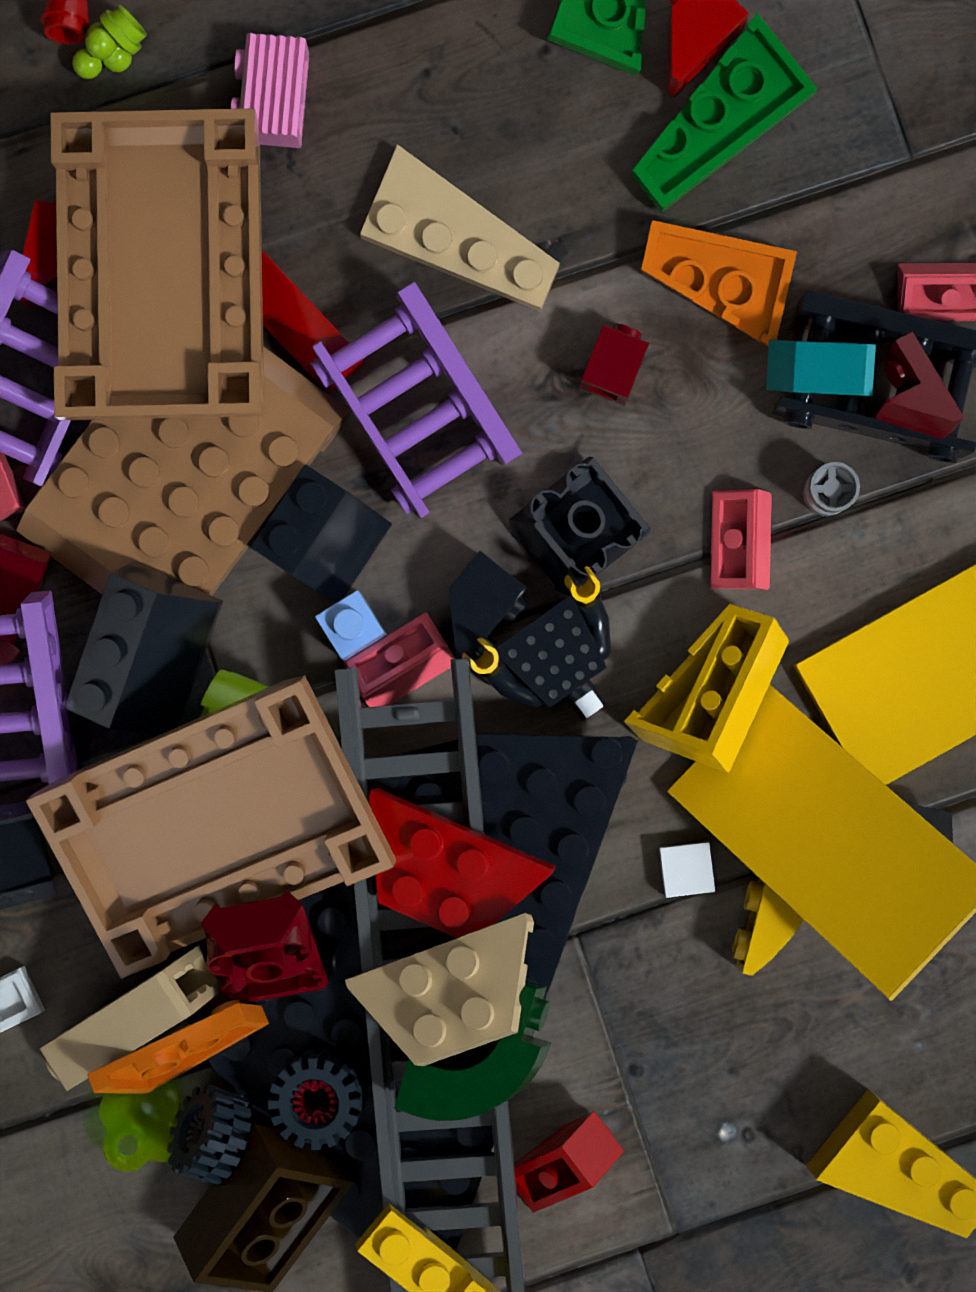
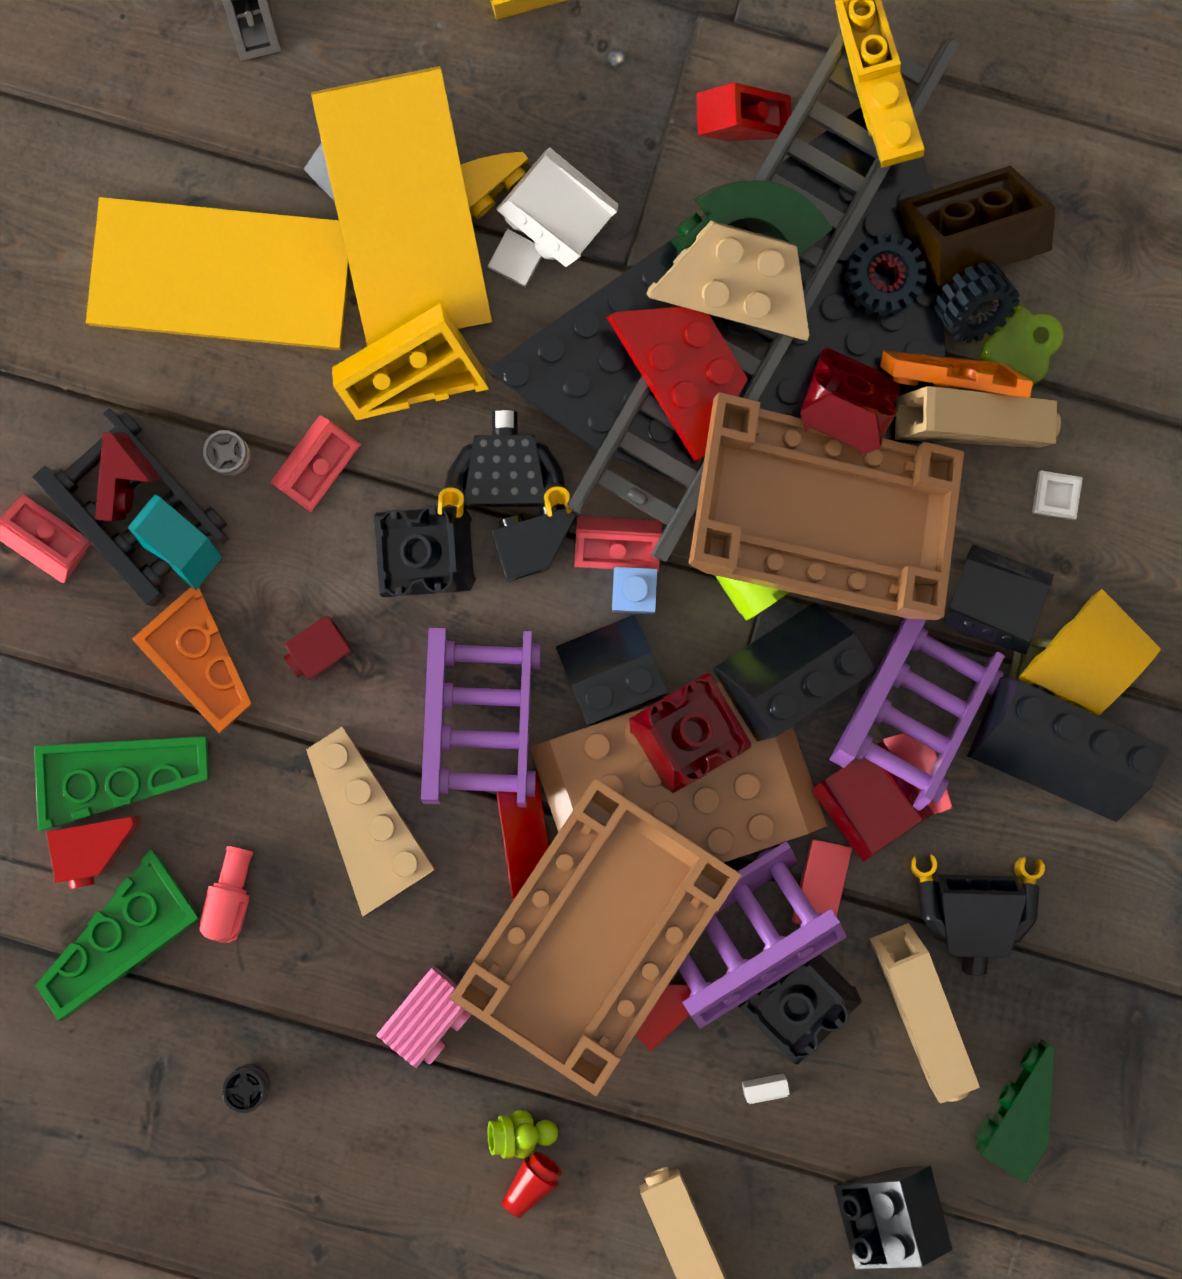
camera: 150 degrees left, 0 degrees up
(200, 522) = (689, 733): none -> dark red slope
(536, 72) = (227, 900): none -> coral arm
(680, 944) = (557, 208): none -> white slope

